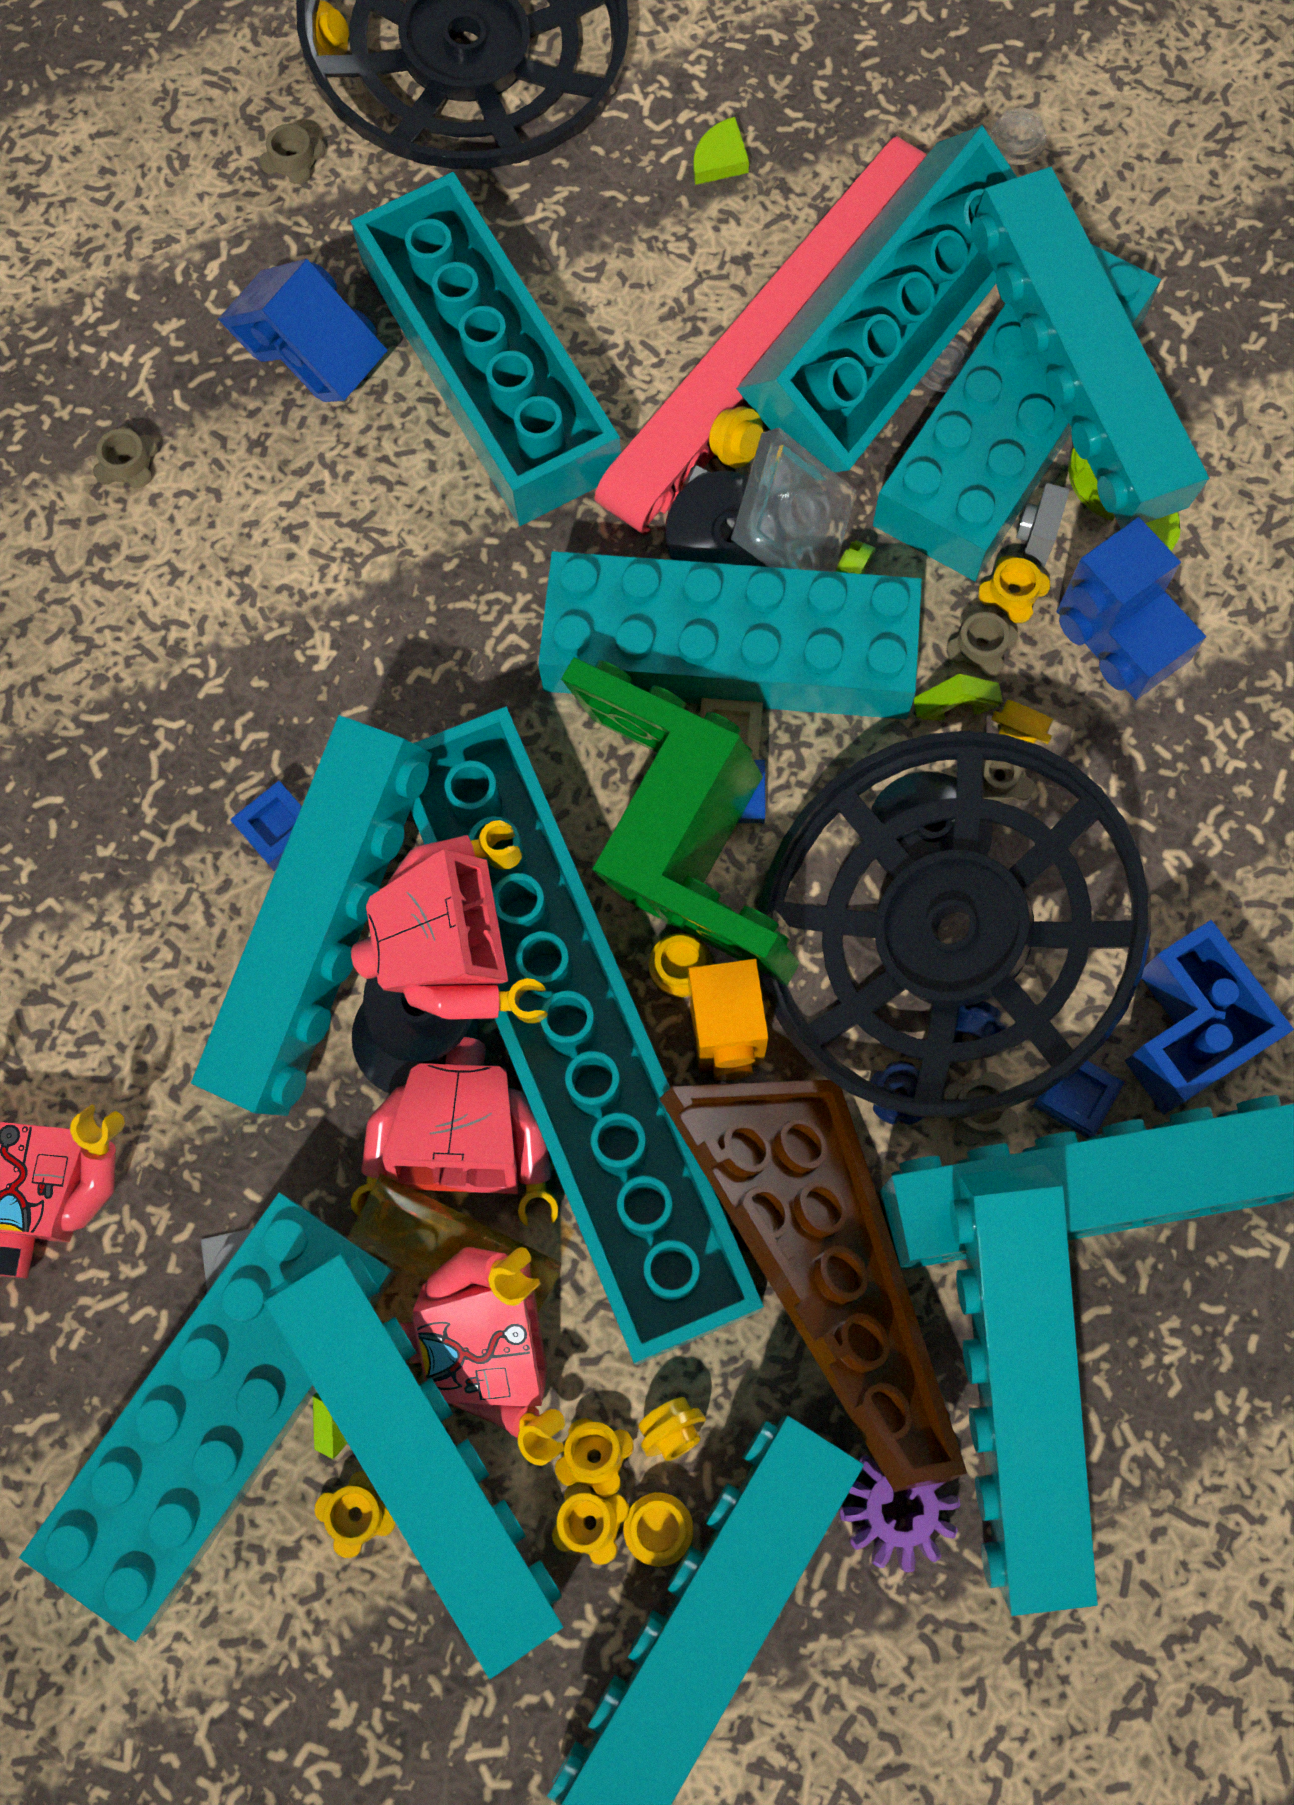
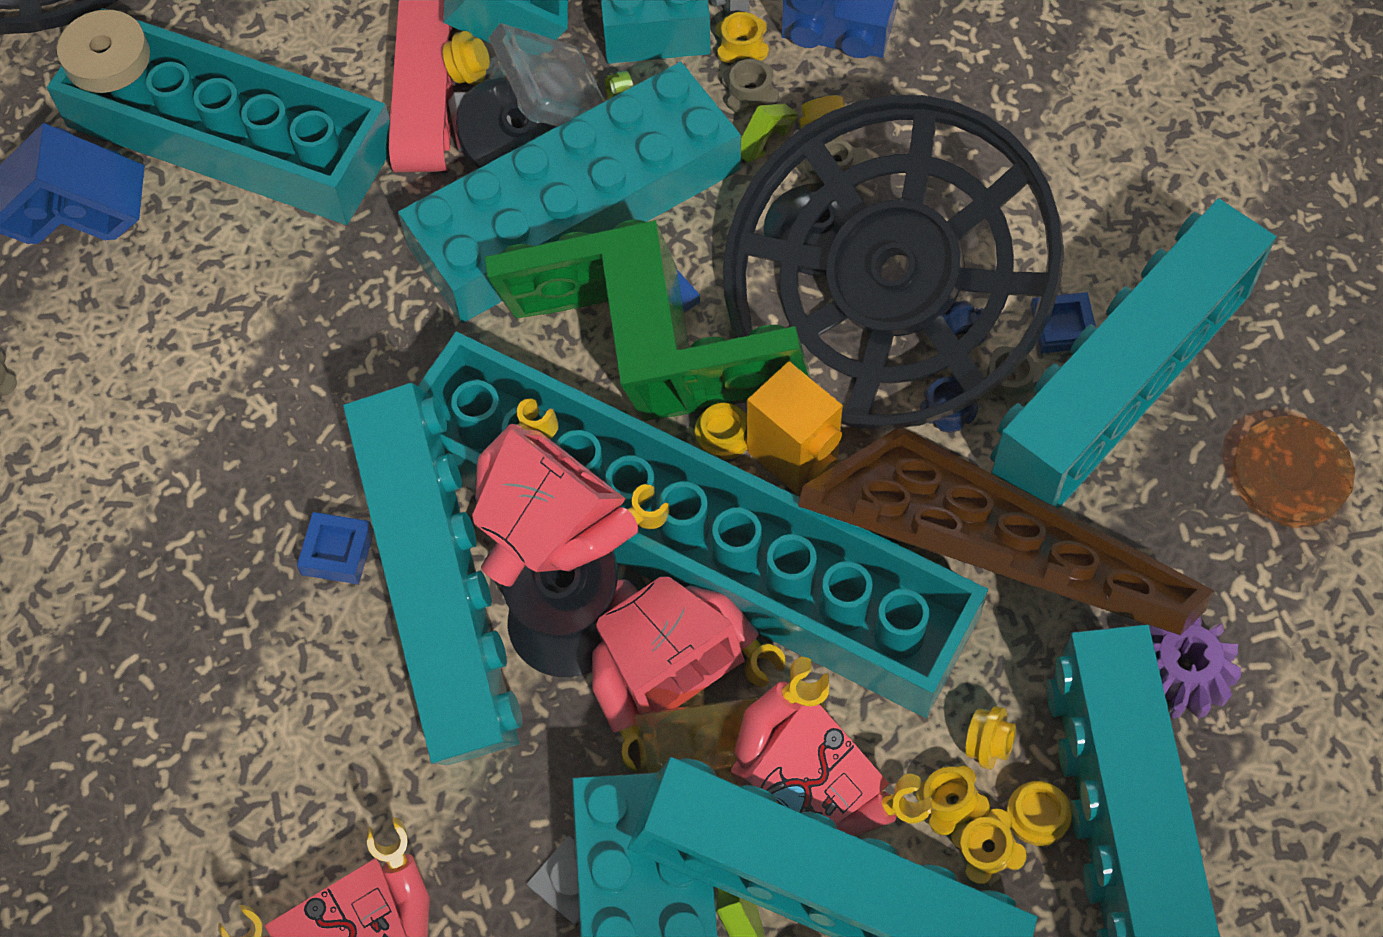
camera: 40 degrees left, 10 degrees down
(416, 195) = (109, 70): none -> tan piece
(1026, 1389) = (1206, 503): teal brick -> none
(1169, 1406) = (1293, 471): none -> clear orange tile
(1217, 1015) = (1109, 203): blue brick -> none

